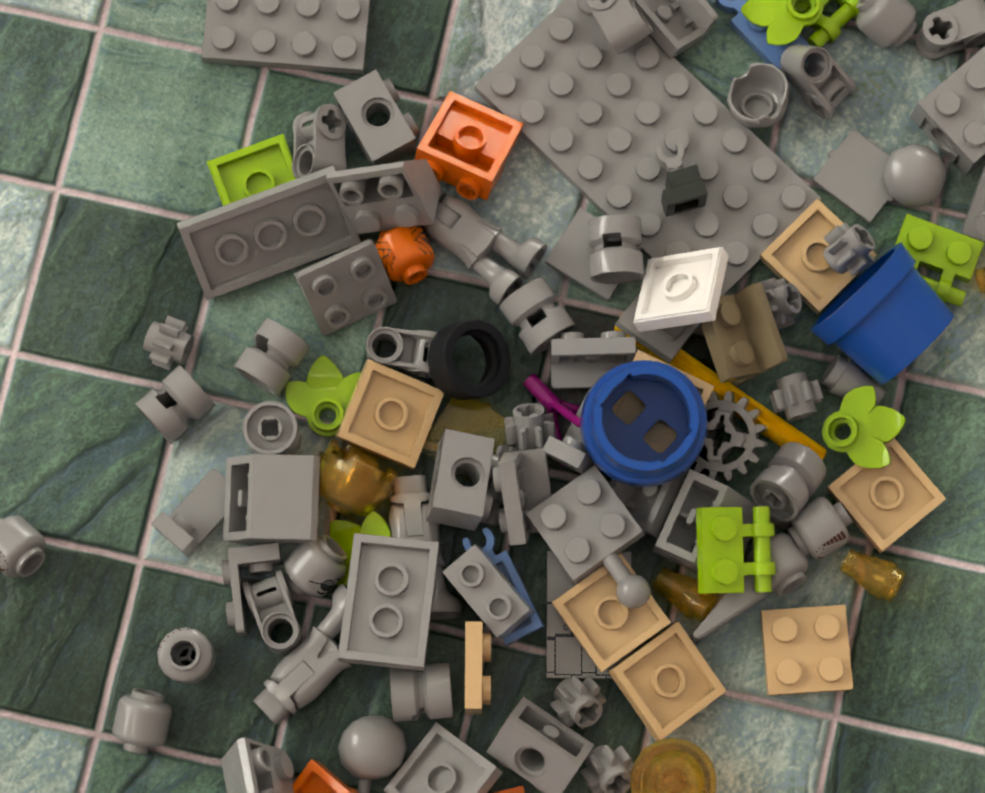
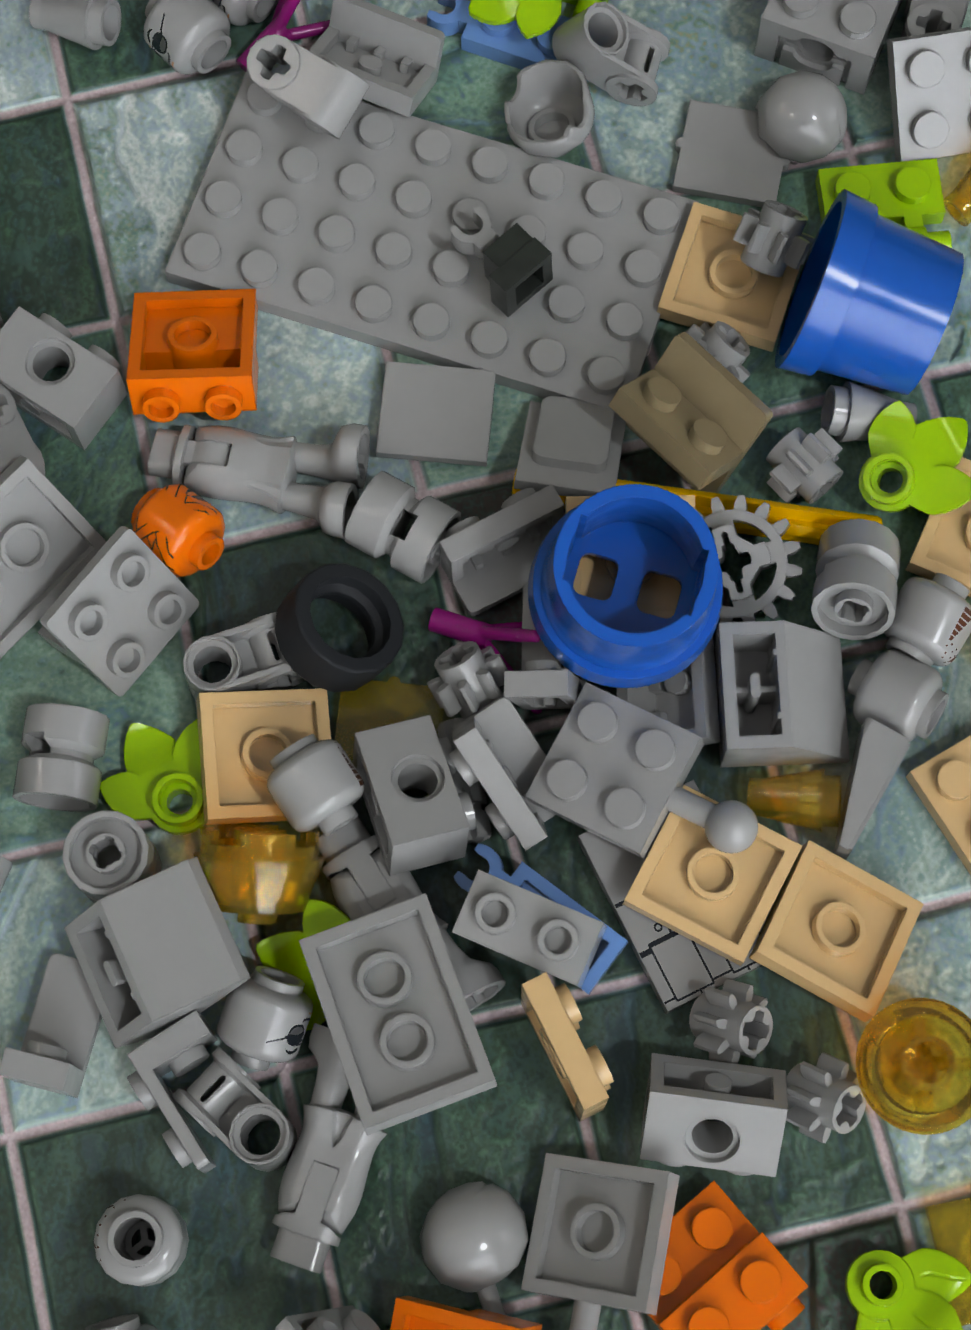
camera: 25 degrees left, 5 degrees down
(387, 195) = (113, 457): light grey slope -> none
(408, 448) = (315, 785): none -> light grey head
(421, 693) = (506, 1121): light grey wheel -> none
(616, 263) = (459, 377): light grey wheel -> none
(681, 289) = (581, 393): white tile -> none
(721, 549) = (821, 709): lime plate -> none

